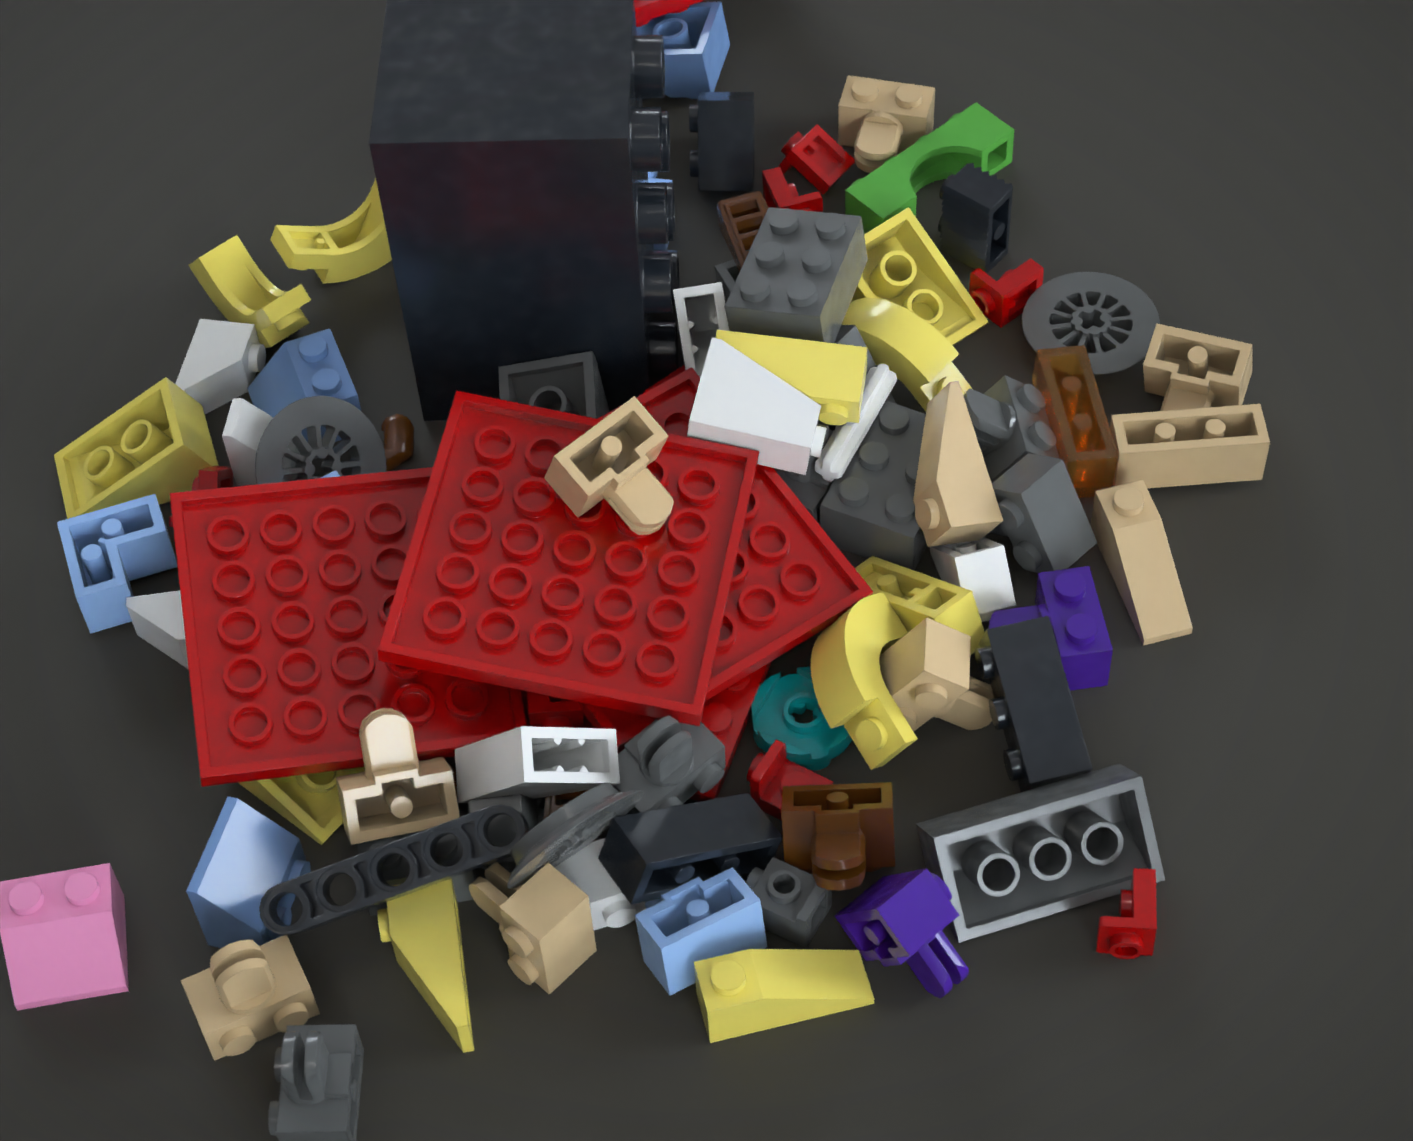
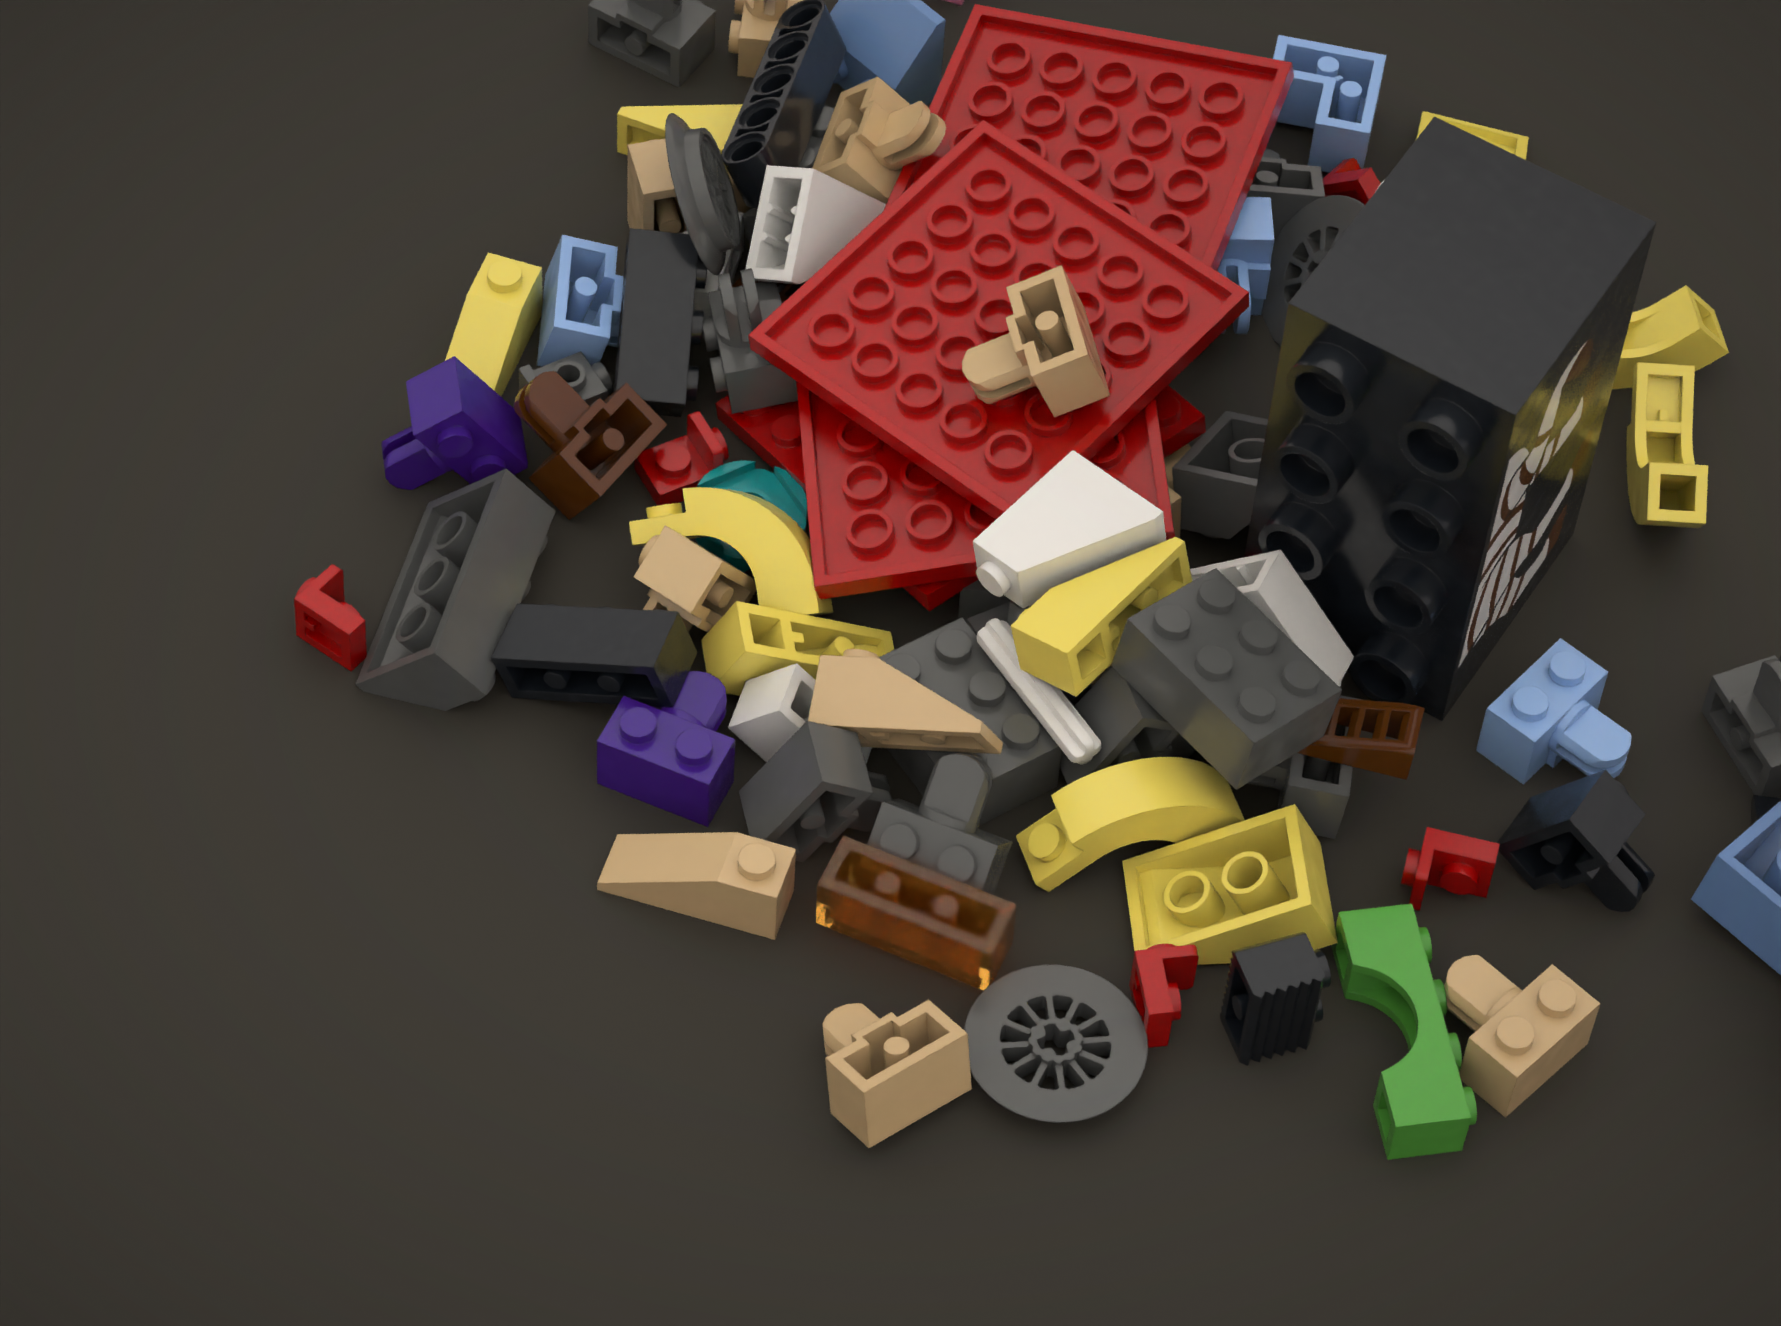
camera: 115 degrees right, 0 degrees up
(816, 158) = (1509, 934): red bracket -> none
(1190, 446) = (799, 990): tan brick -> none

